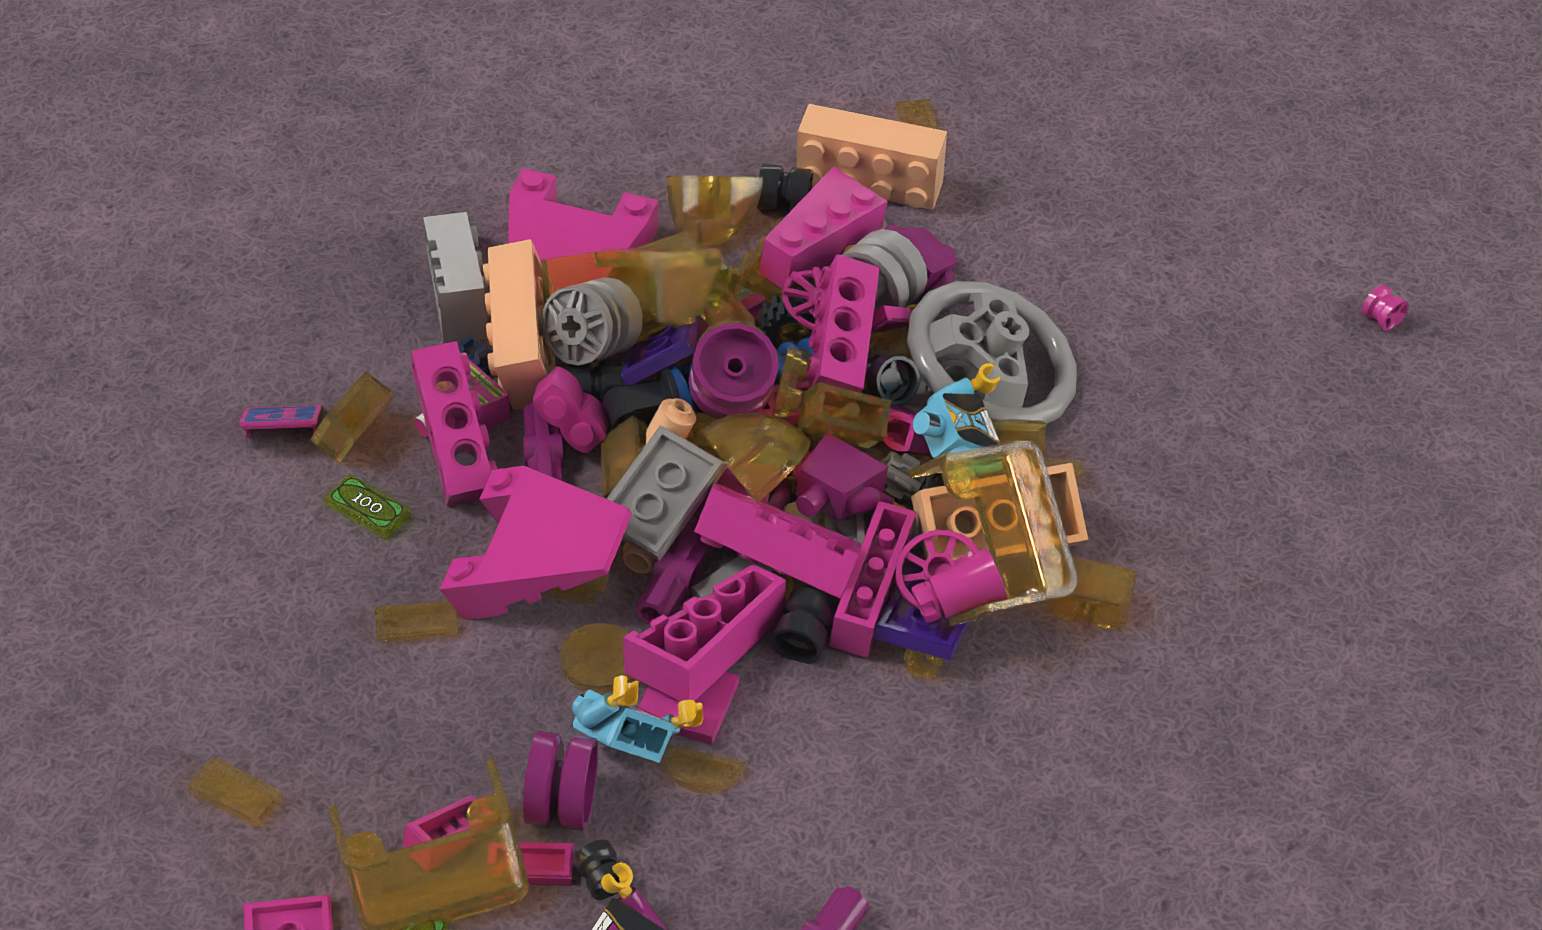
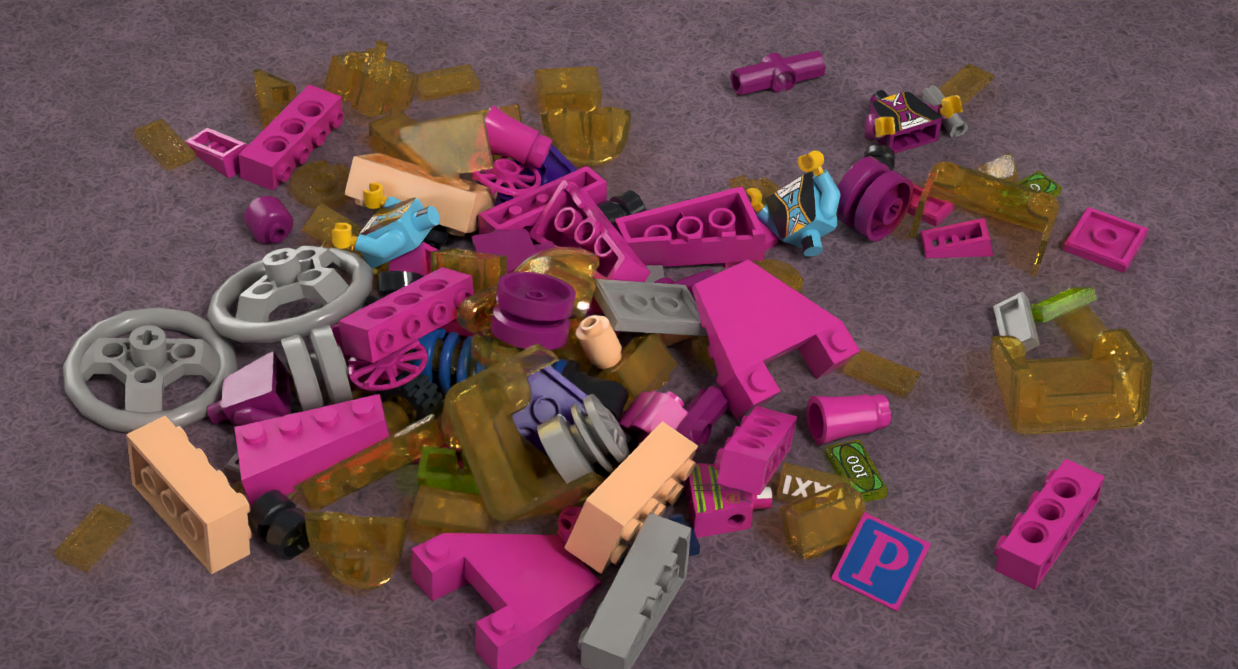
camera: 145 degrees left, 5 degrees down
(153, 538) = (1048, 523): none -> dark pink brick
(221, 690) = (1074, 392): none -> clear yellow windscreen
(285, 799) = (1062, 303): none -> clear neon green tile
(315, 745) = (1016, 319): none -> light grey tile
(388, 459) = (801, 482): none -> clear yellow tile
(410, 537) = (846, 416): none -> dark pink plant
(931, 717) = (589, 136): none -> clear yellow brick
(1010, 763) = (567, 88): none -> clear yellow brick
(1039, 245) = (147, 357): none -> light grey piece
(1111, 436) = (268, 220): none -> magenta head
(1119, 529) = (312, 187): none -> clear yellow tile
(1149, 712) = (446, 82): none -> clear yellow tile
(1195, 623) = (371, 81): none -> clear yellow brick
(1200, 537) = (291, 137): none -> dark pink brick
(1229, 496) = (220, 154): none -> dark pink slope
(1277, 566) = (271, 95): none -> clear yellow slope
(1307, 473) = (164, 144): none -> clear yellow tile

